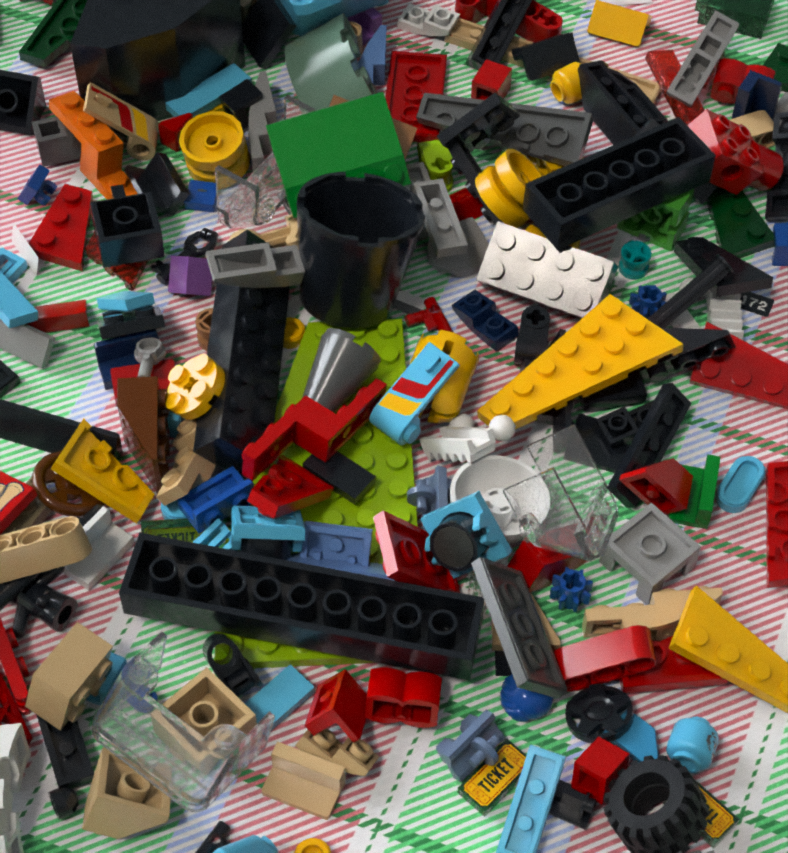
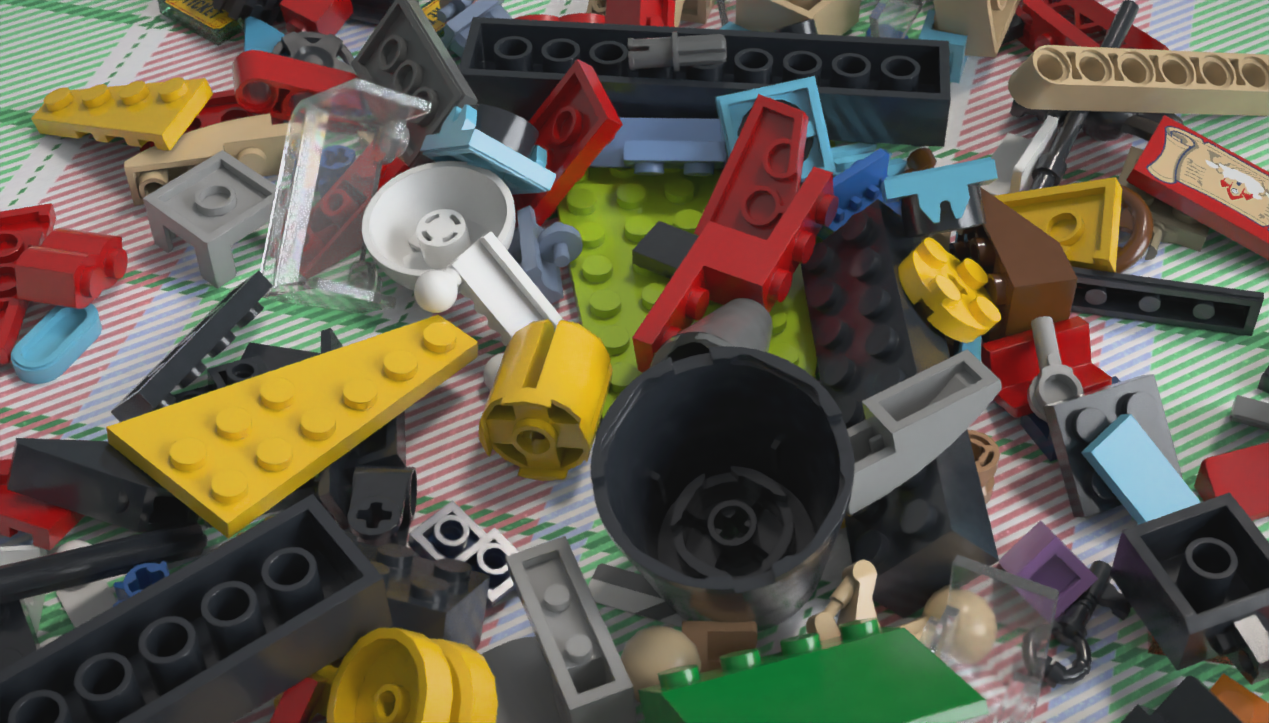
camera: 175 degrees right, 10 degrees down
(183, 419) = (940, 197): none -> medium azure piece
(324, 579) = (676, 51): none -> dark grey axle
(399, 408) = (582, 319): medium azure door -> none
(431, 320) = (544, 531): red hose -> none
(661, 483) = (191, 281): red slope -> none
(693, 743) = (199, 42): medium azure head -> none
(701, 495) = (128, 317): green panel -> none
(740, 516) = (70, 268): none -> red brick

